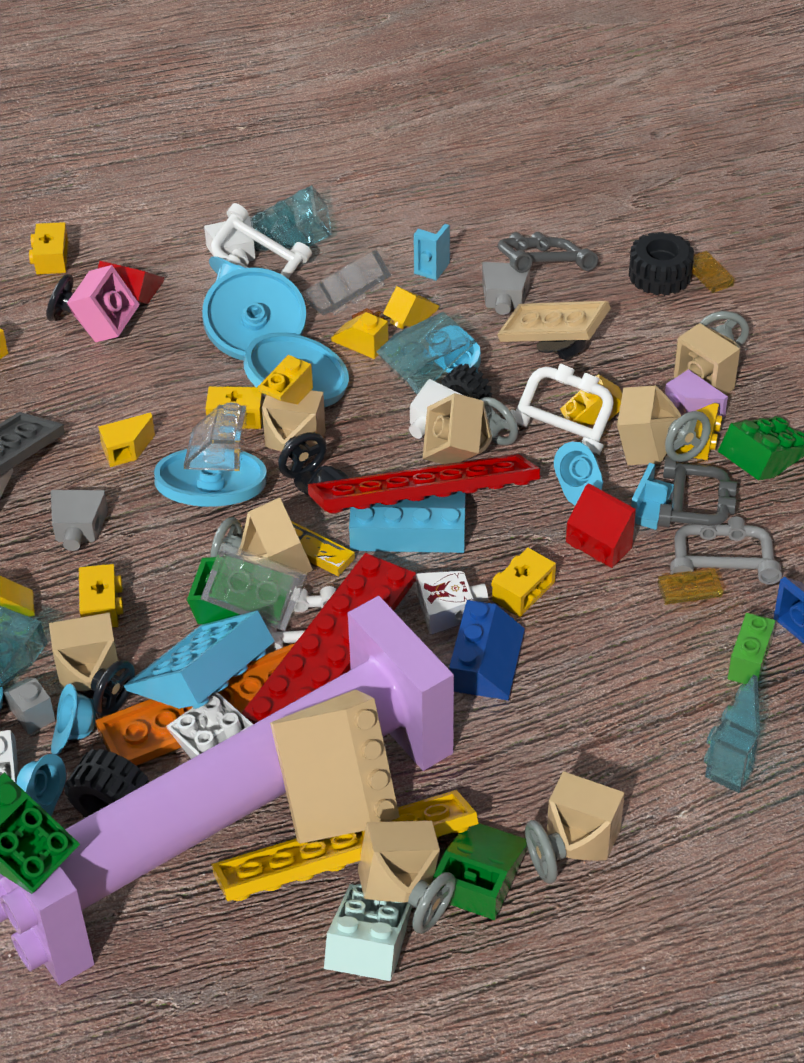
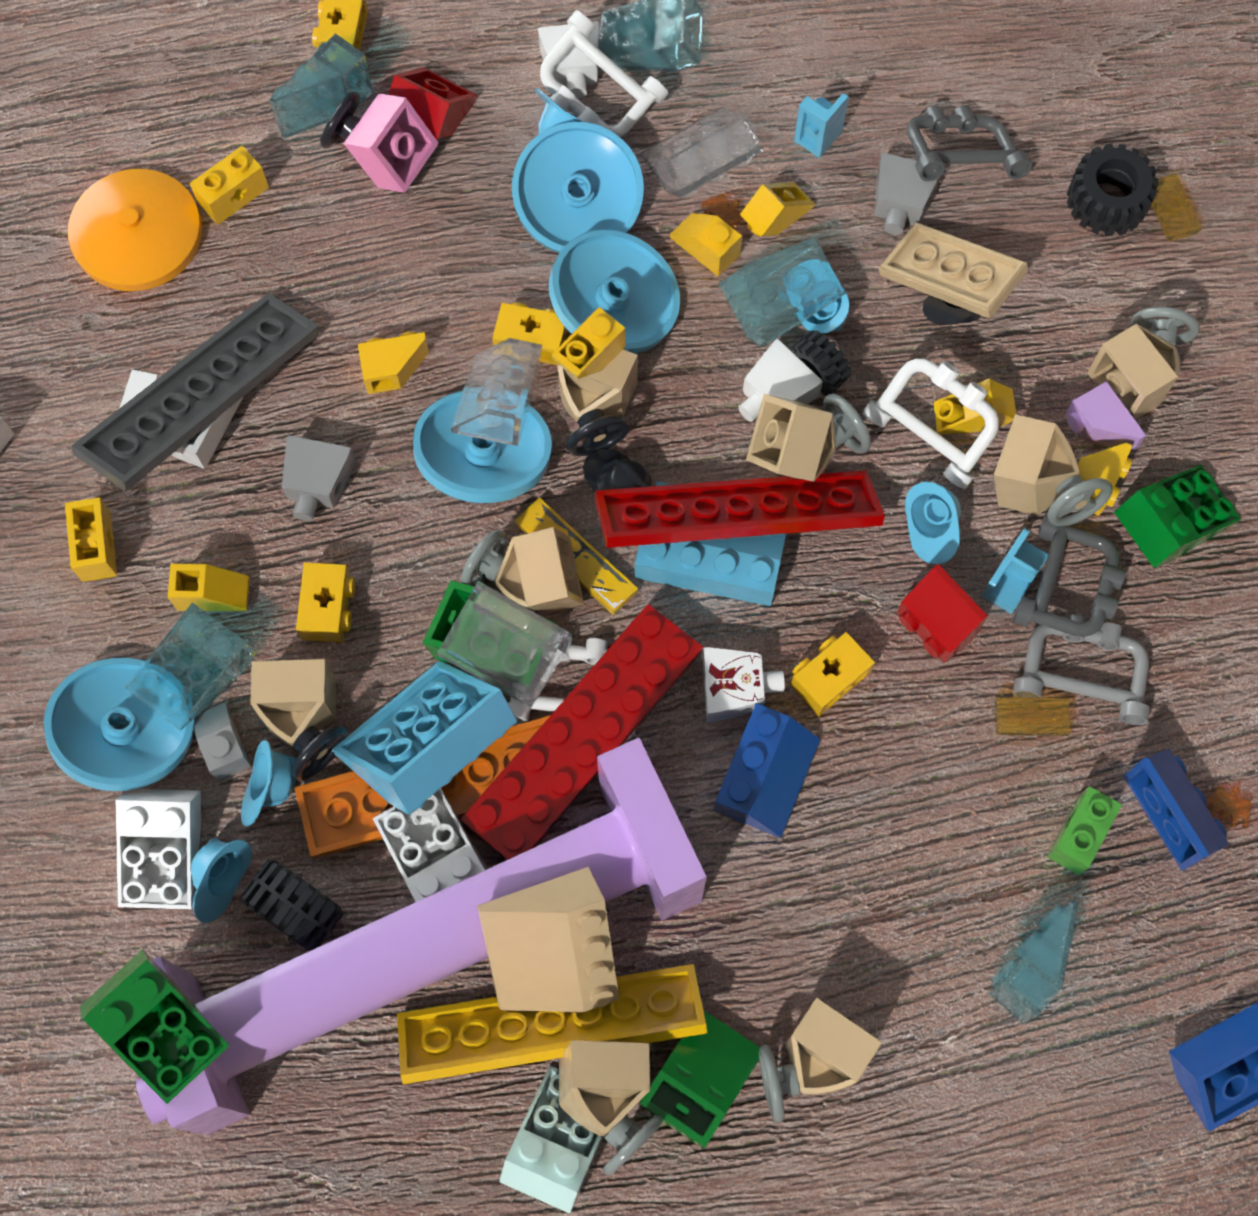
camera: 10 degrees right, 25 degrees up
(35, 280) = (320, 86): none -> clear light blue slope

